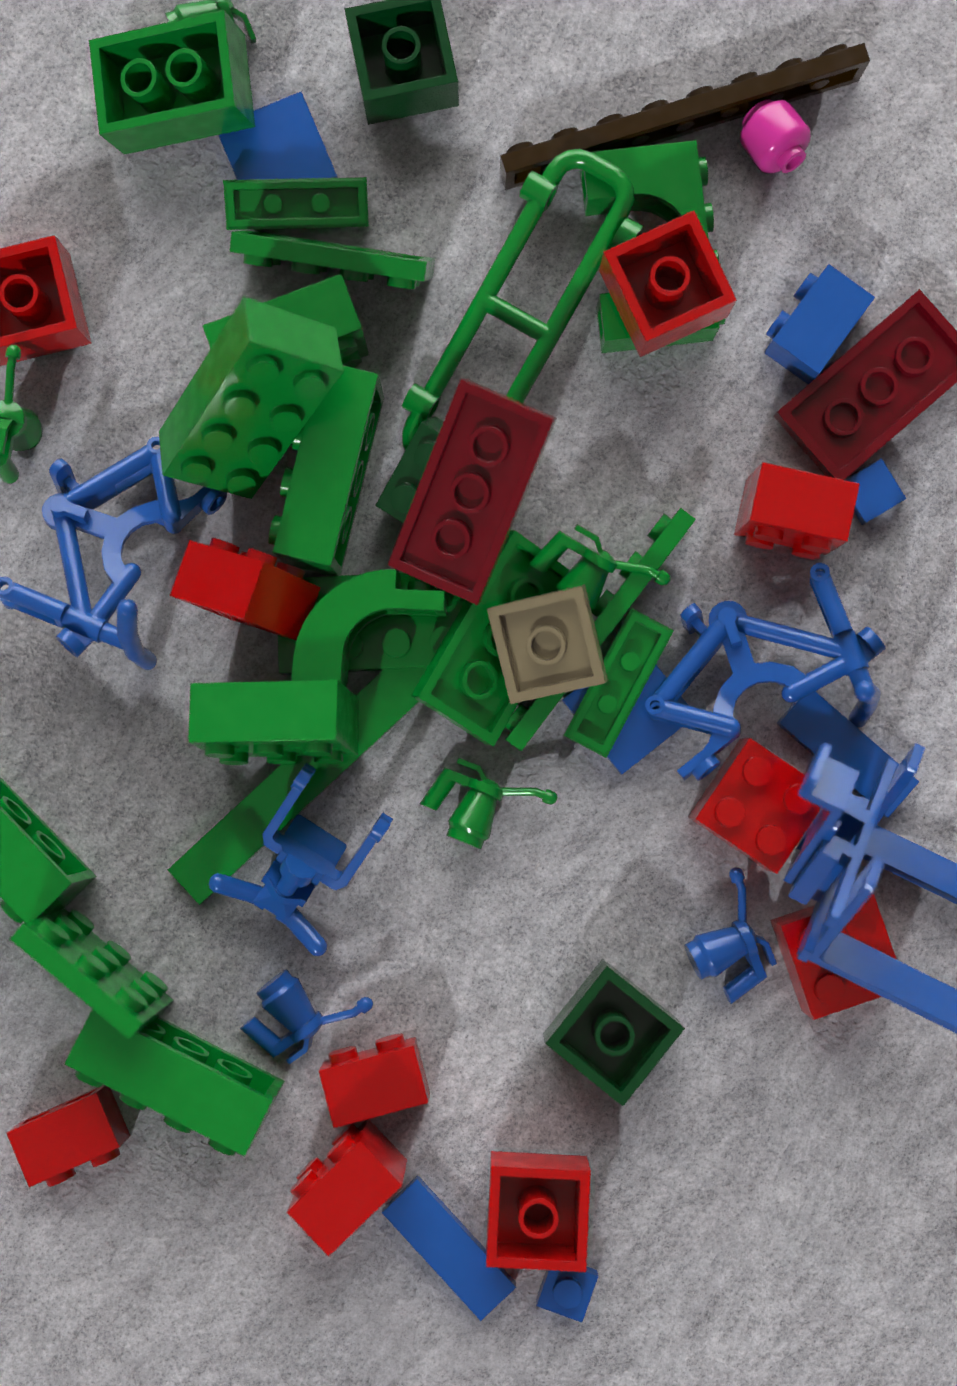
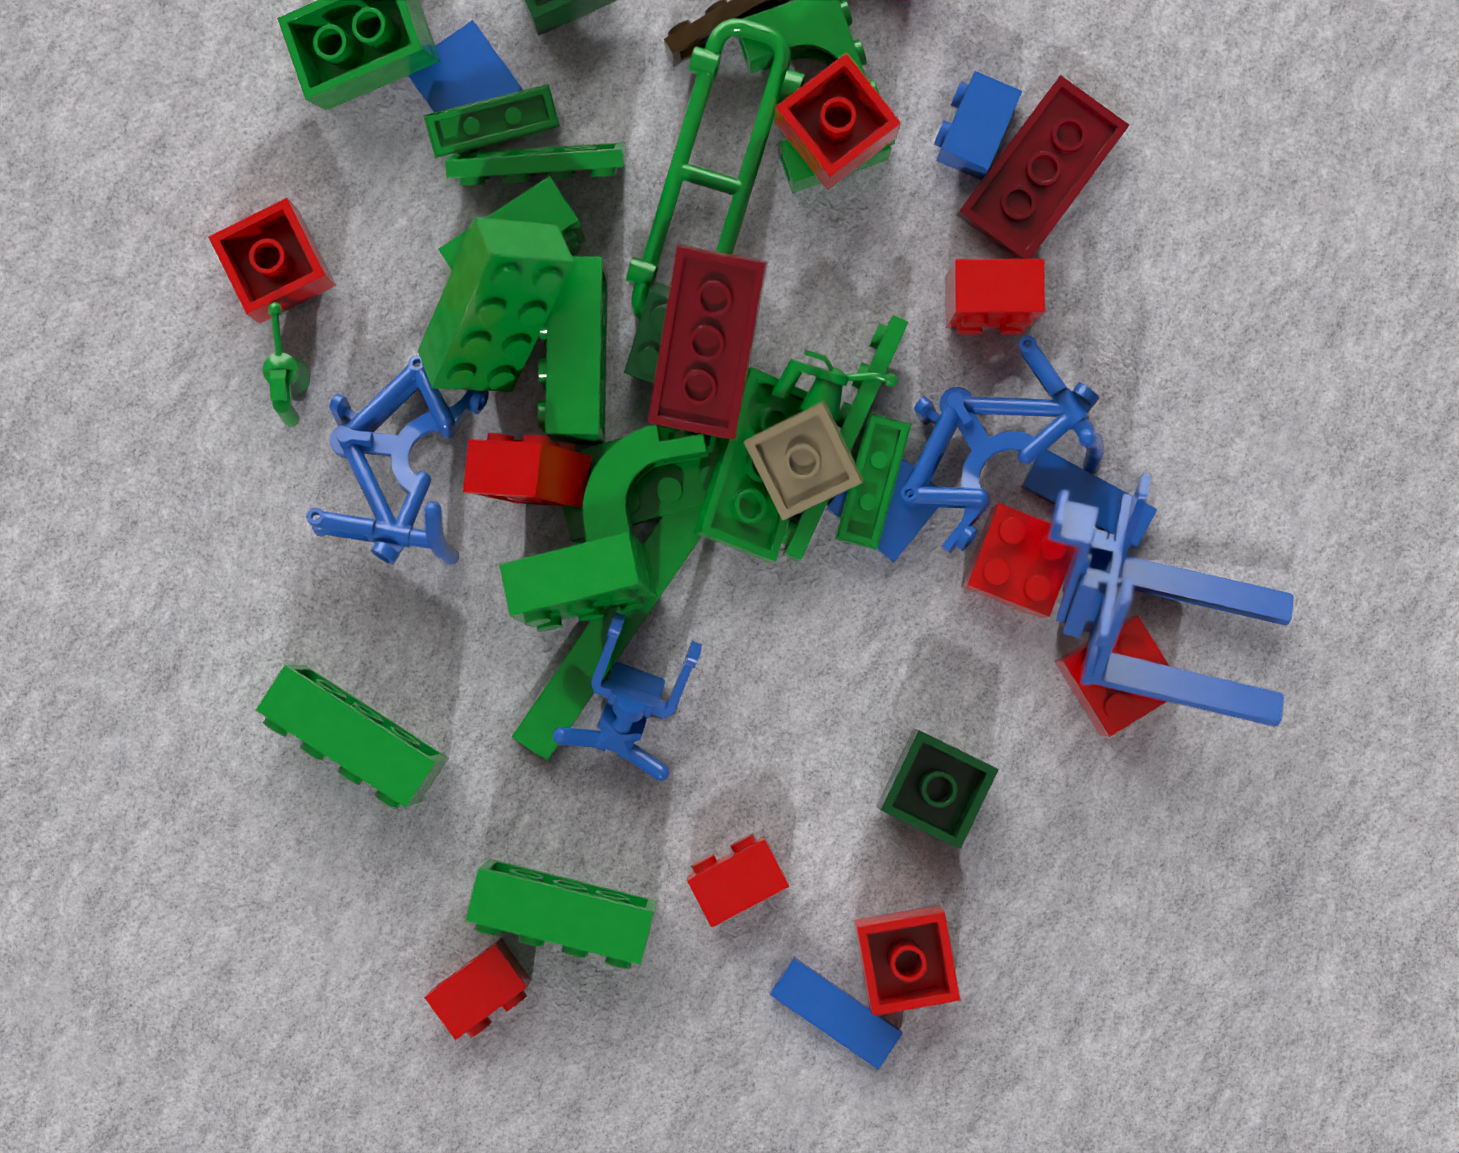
camera: 15 degrees left, 0 degrees up
(94, 970) = (471, 834): green plate -> none
(289, 1004) = (646, 830): blue piece -> none
(347, 1186) = (734, 975): red brick -> none
(474, 815) = (772, 625): green piece -> none
(567, 1292) = (948, 1025): blue plate -> none
(719, 949) = (1013, 697): blue piece -> none
(876, 491) = (1062, 262): blue tile -> none

